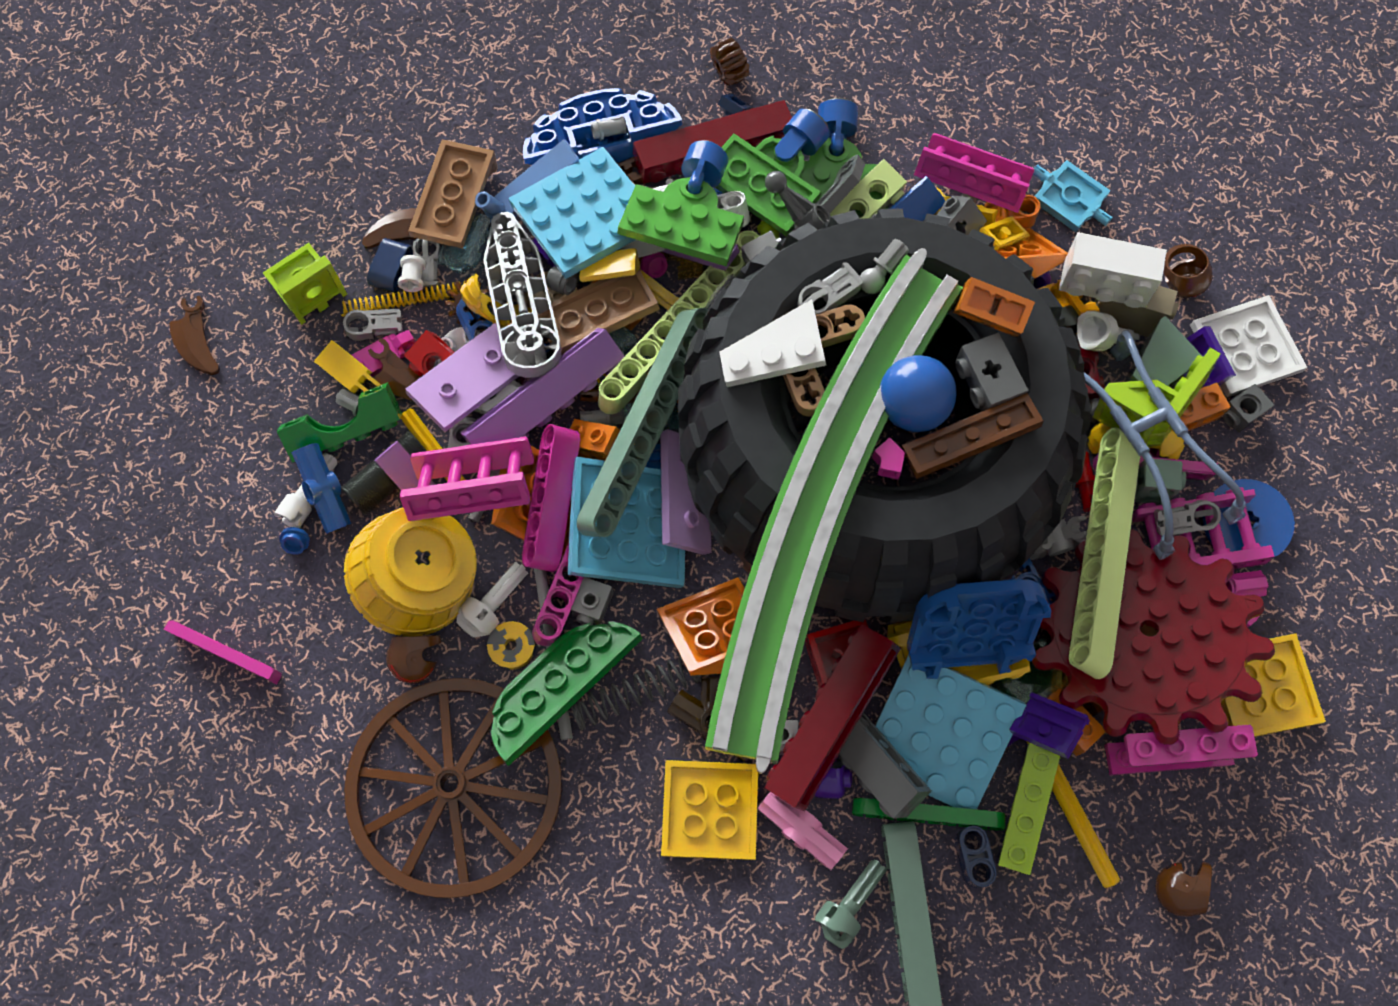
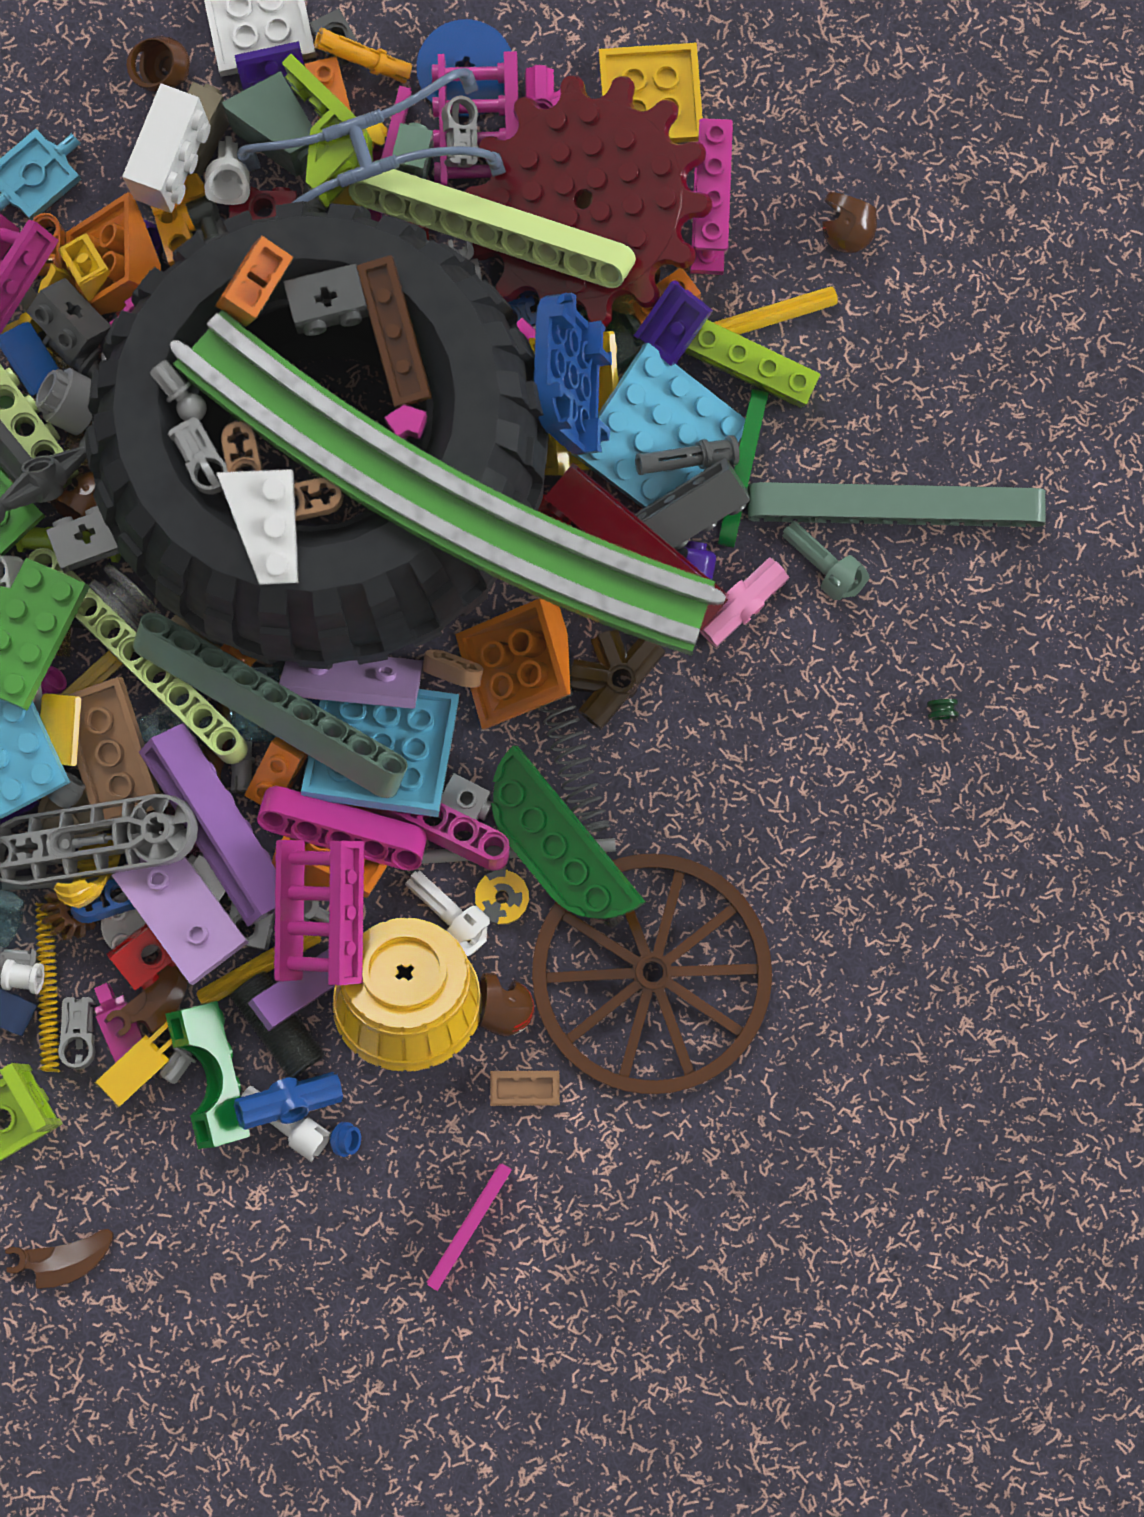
camera: 85 degrees left, 10 degrees up
(344, 685) = (524, 1088): none -> medium nougat plate
(705, 576) = (452, 668): none -> medium nougat beam
(710, 810) = (712, 698): yellow plate -> none
(914, 719) = (703, 455): none -> dark grey pin
(918, 393) = (340, 378): blue piece -> none
(981, 855) = (791, 422): dark blue beam -> none
(1236, 431) = (375, 60): none -> light orange pin

